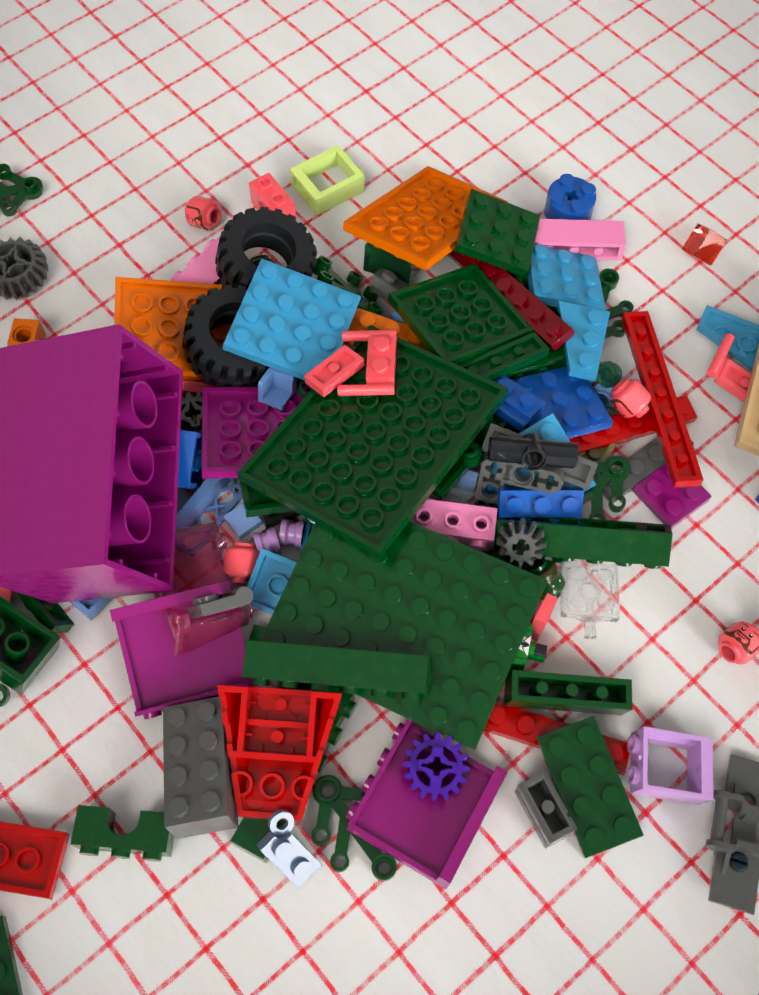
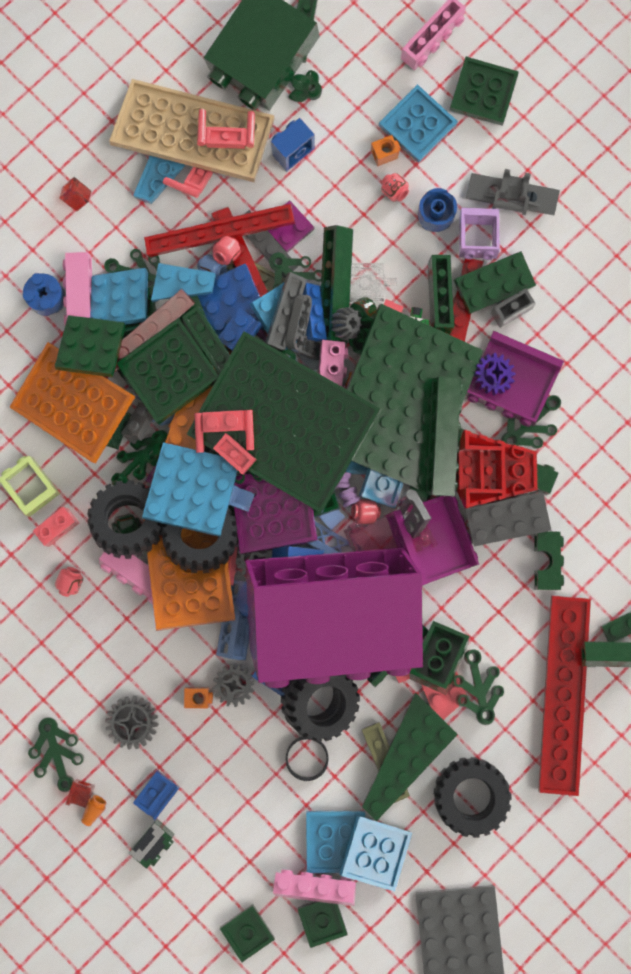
camera: 90 degrees left, 20 degrees up
(287, 851) = (552, 459): hinge -> none
(520, 451) = (290, 314): black piece -> none
(609, 374) = (209, 264): clear green plate -> none
(715, 688) = (447, 208): none -> blue brick

